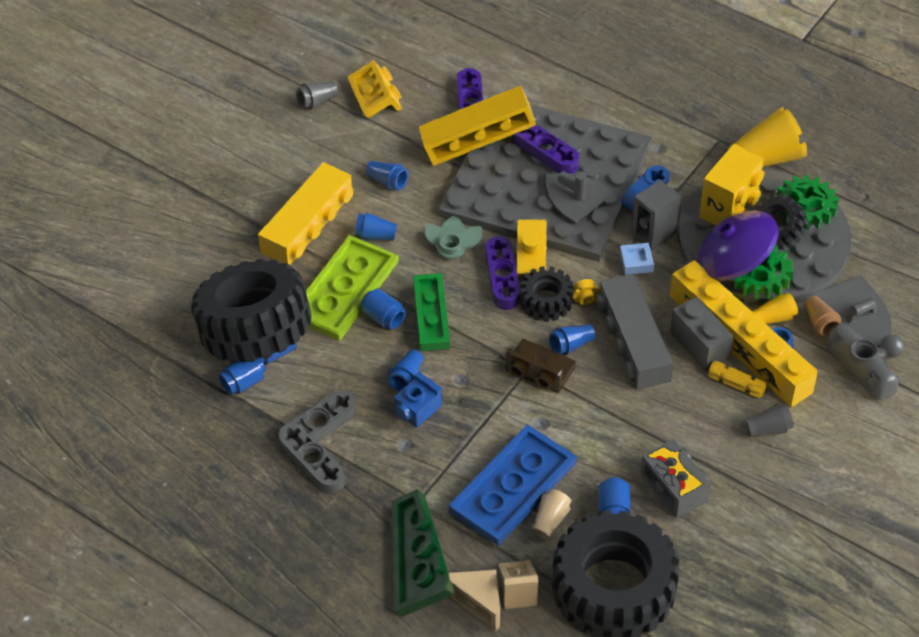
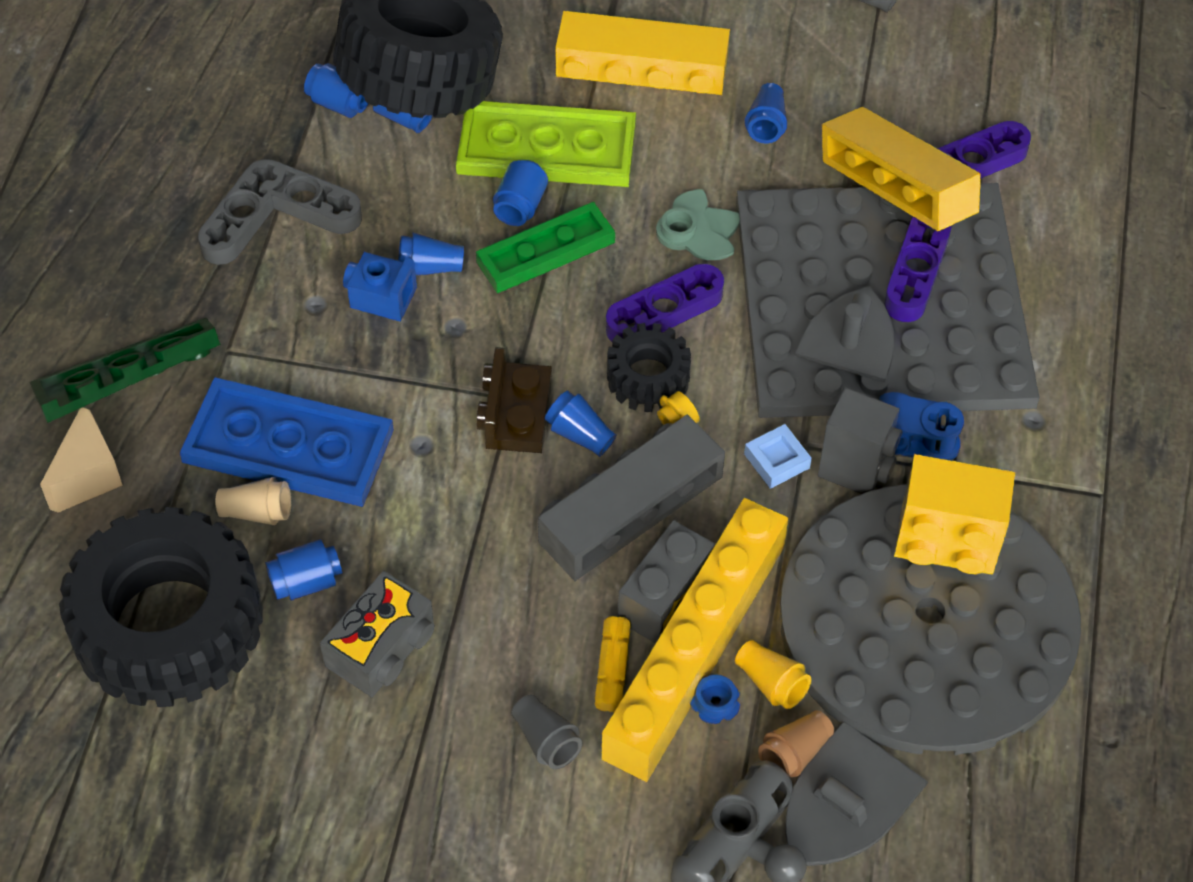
camera: 65 degrees right, 5 degrees up
(374, 89) = (918, 45): yellow bracket -> none
(374, 228) = (660, 131): blue cone -> none
(518, 584) = (121, 492): tan slope -> none
(531, 246) = (720, 317): yellow tile -> none
(738, 245) = (838, 558): dark purple dish -> none
(764, 278) = (828, 633): green gear -> none
(775, 139) = (1115, 553): yellow cone -> none
(795, 214) = (937, 621): black tyre -> none
(813, 197) = (988, 648): green gear -> none

